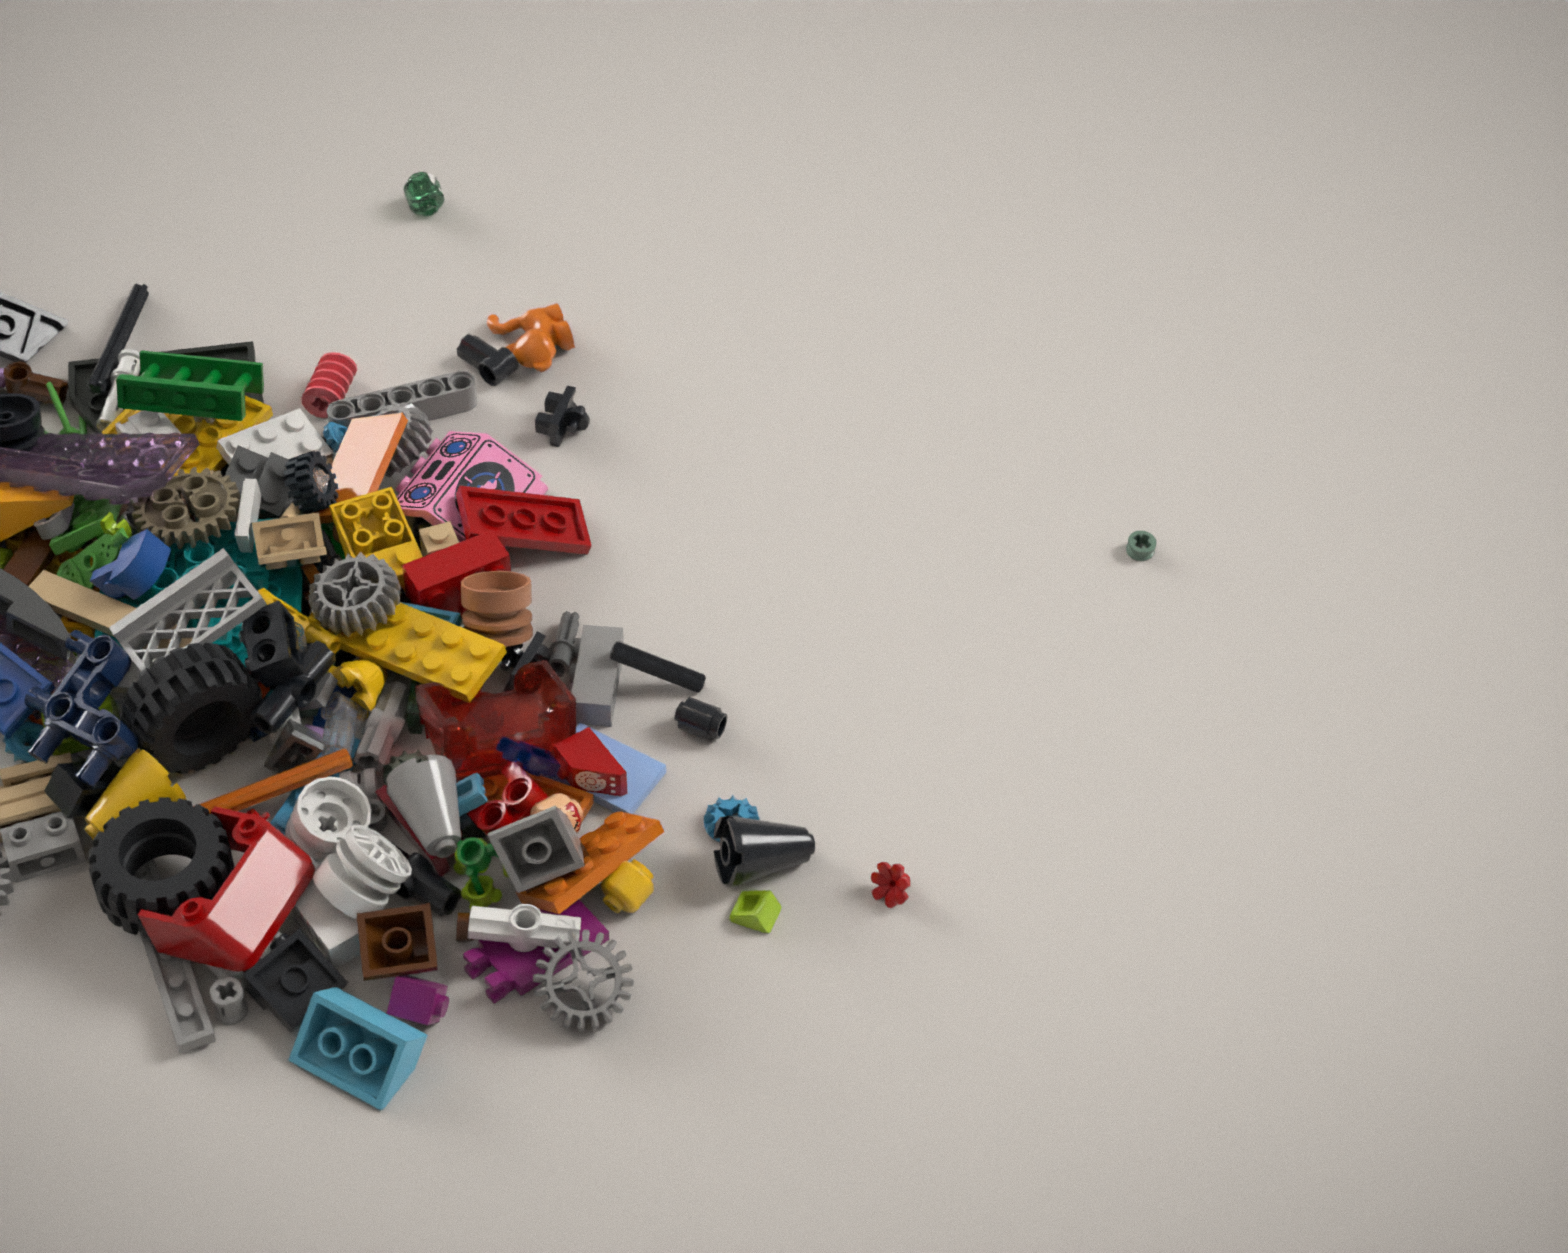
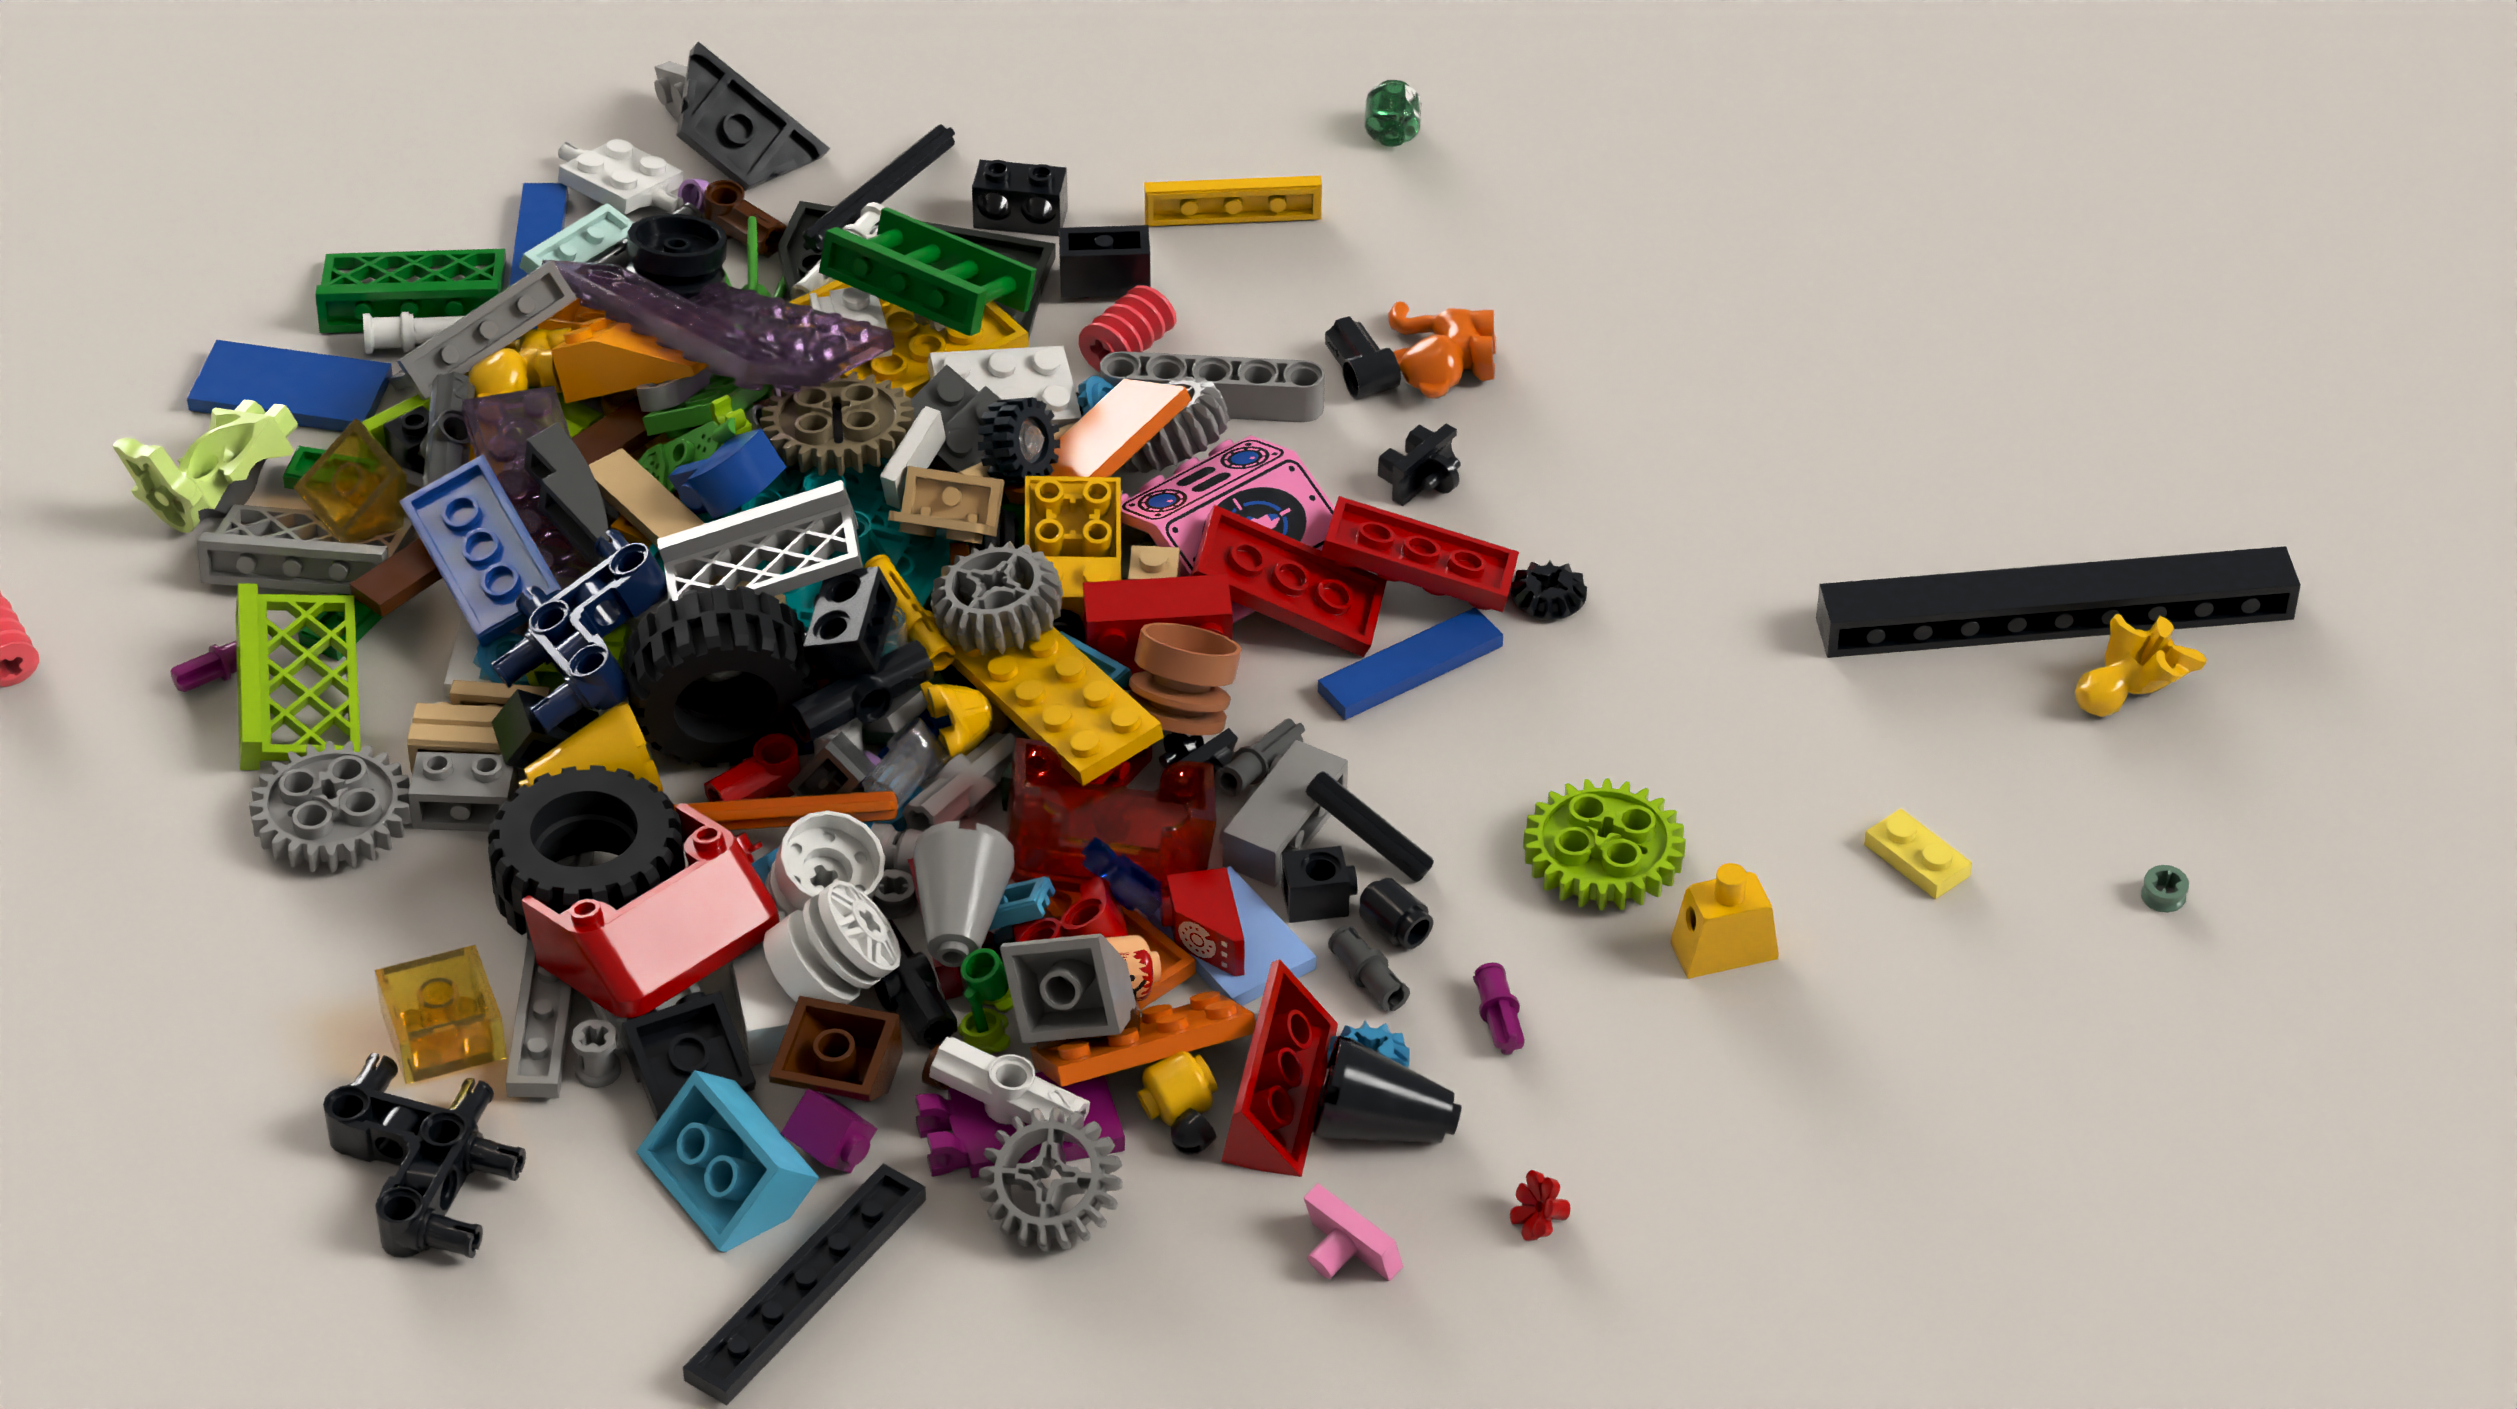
camera: 25 degrees right, 5 degrees down
(108, 1012) = (440, 1014): none -> clear yellow brick
(130, 1108) = (433, 1152): none -> black pin
(214, 317) = (1019, 197): none -> black brick
(241, 766) = (761, 776): none -> red piece
(294, 344) = (1103, 260): none -> black brick
(351, 279) = (1232, 200): none -> yellow tile
(452, 1115) = (804, 1284): none -> black plate
(594, 476) = (1420, 554): none -> red plate
(619, 549) = (1410, 663): none -> blue tile
(641, 716) = (1317, 884): none -> black brick
(650, 913) = (1192, 1132): none -> black hinge
(685, 857) = (1280, 1078): none -> red slope
(688, 481) = (1554, 602): none -> black gear
(702, 761) = (1368, 968): none -> dark grey pin
(756, 910) = (1342, 1174): lime slope -> none
(786, 948) = (1348, 1236): none -> bright pink tile
(796, 759) = (1499, 1007): none -> magenta axle
(803, 629) = (1604, 844): none -> lime gear
(907, 658) = (1724, 924): none -> yellow torso
(982, 386) = (2055, 601): none -> black brick
(988, 571) = (1918, 853): none -> light yellow plate
(1054, 410) = (2135, 664): none -> yellow animal

